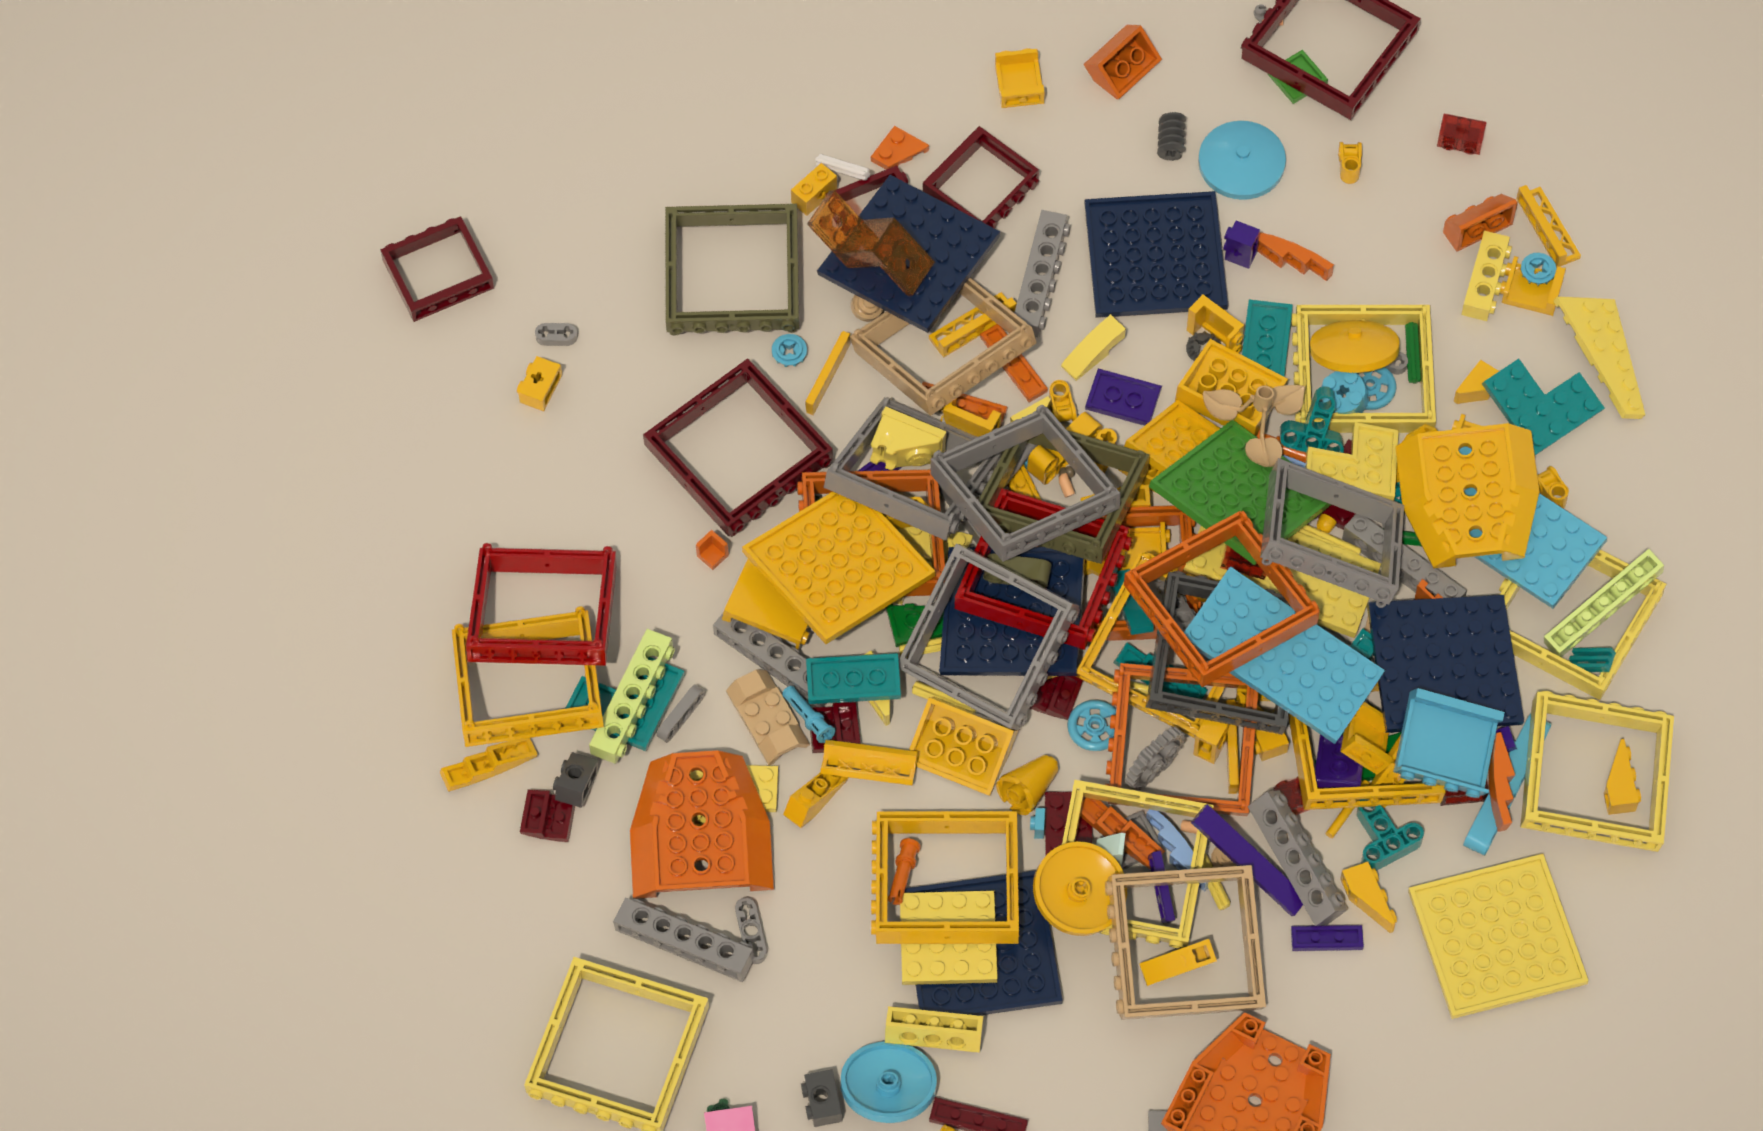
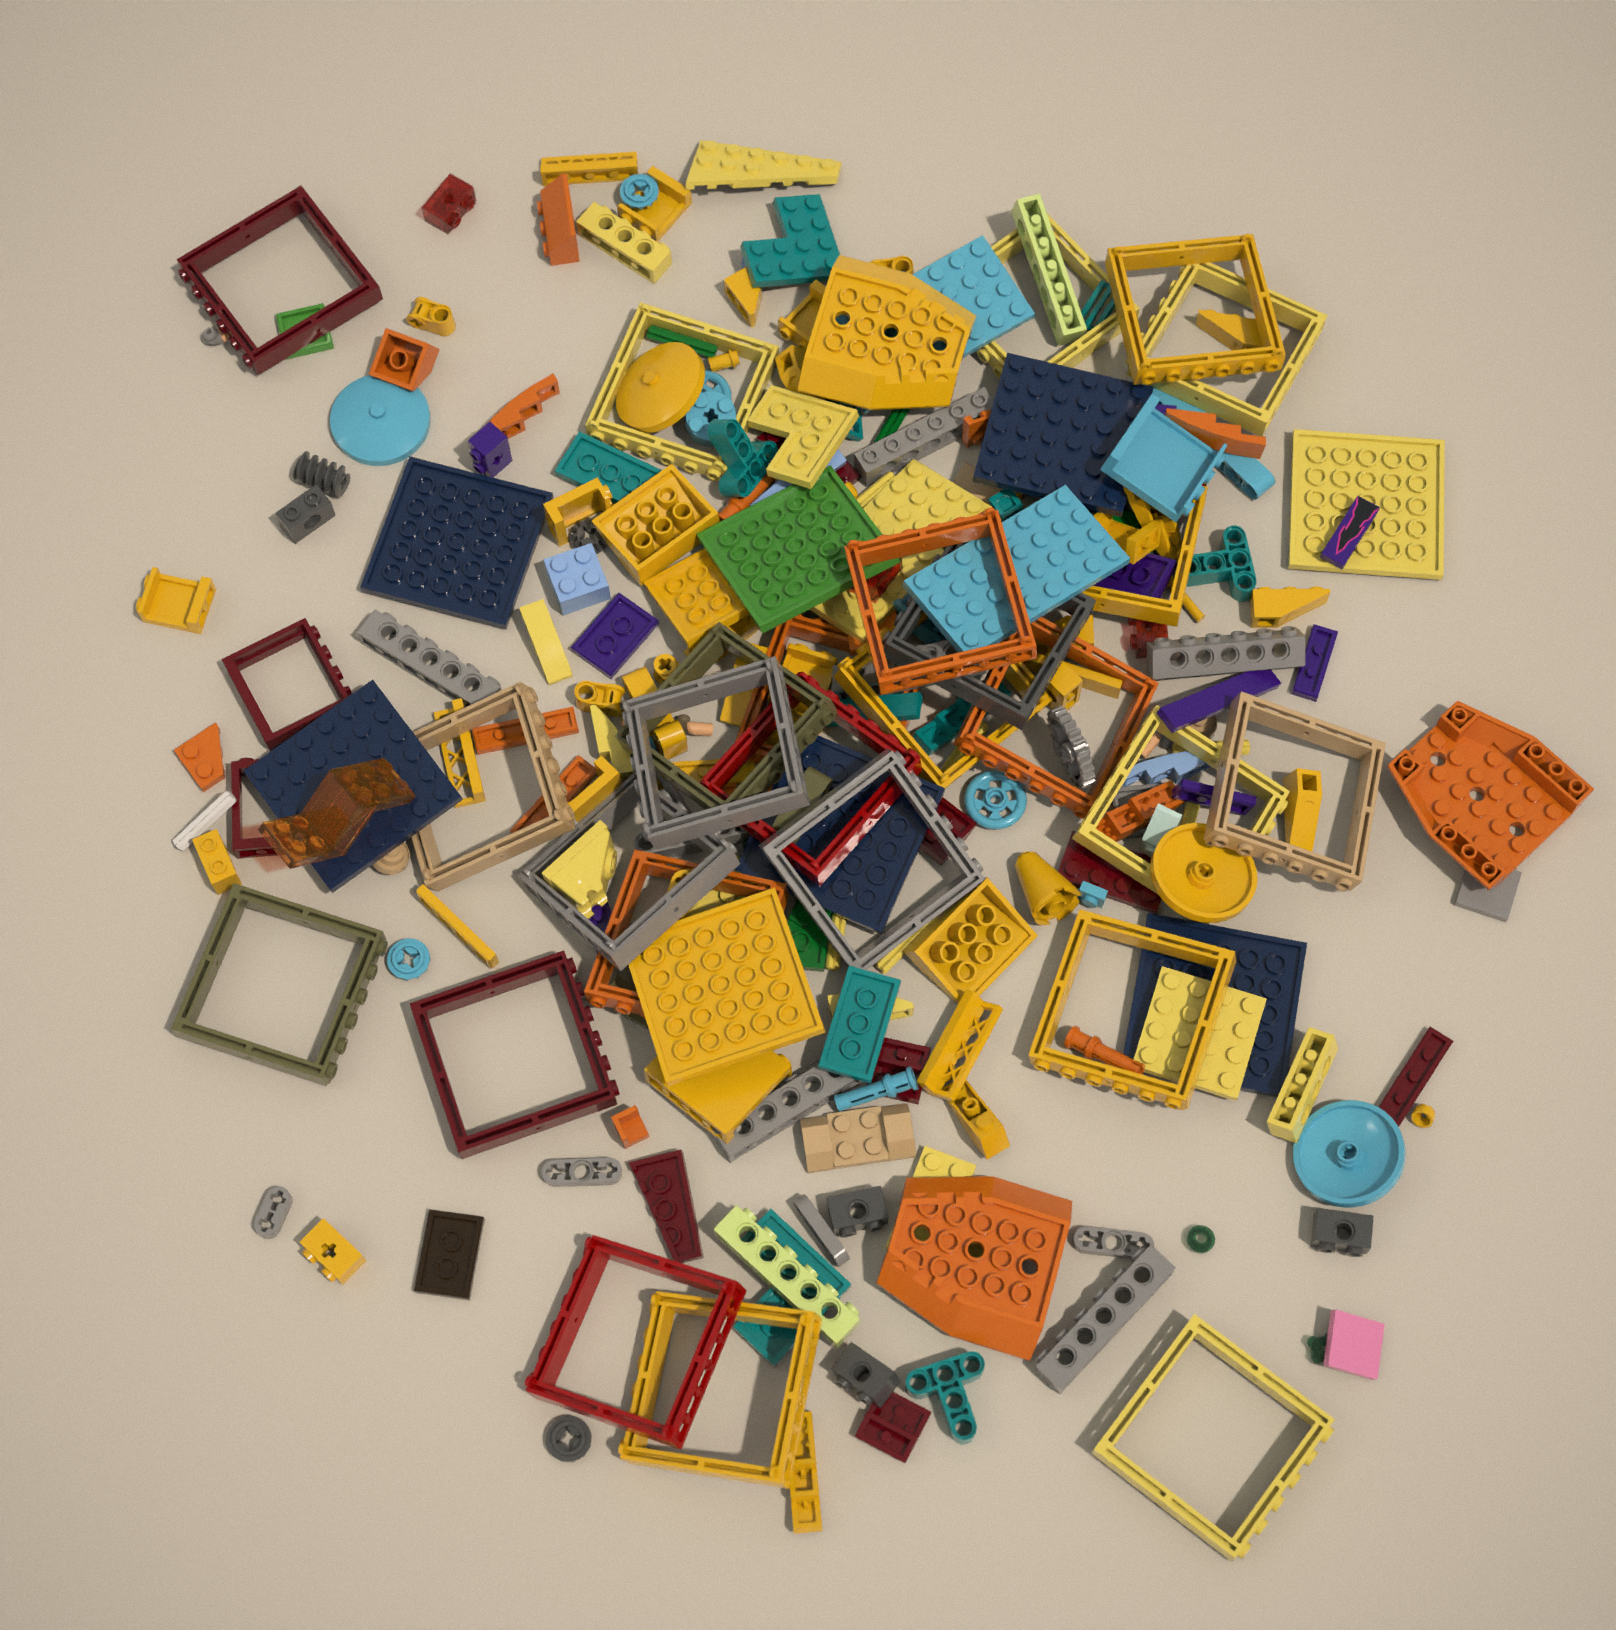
camera: 70 degrees left, 5 degrees up
(448, 296) = (169, 1317): dark red window -> none
(461, 586) = (557, 1432): none -> dark grey gear
(568, 464) = (449, 1254): none -> dark brown tile
(585, 841) = (950, 1388): none -> teal beam
(666, 522) = (562, 1181): none -> light grey beam
(670, 597) = (669, 1197): none -> dark red wing
(703, 721) = (869, 1200): none -> dark grey brick
(777, 1001) = (1198, 1247): none -> clear green plate
(1123, 60) = (205, 489): orange slope -> none
(1131, 137) = (305, 514): none -> dark grey brick
(1158, 350) = (577, 579): none -> light blue brick
(1286, 400) = (699, 475): tan plant -> none
(1299, 154) = (403, 360): none -> orange slope
(1322, 566) = (977, 448): light grey window -> none
(1407, 388) = (724, 361): none -> yellow pin
(1458, 925) = (1350, 532): none -> tile
(1561, 760) = (1203, 365): none -> yellow window

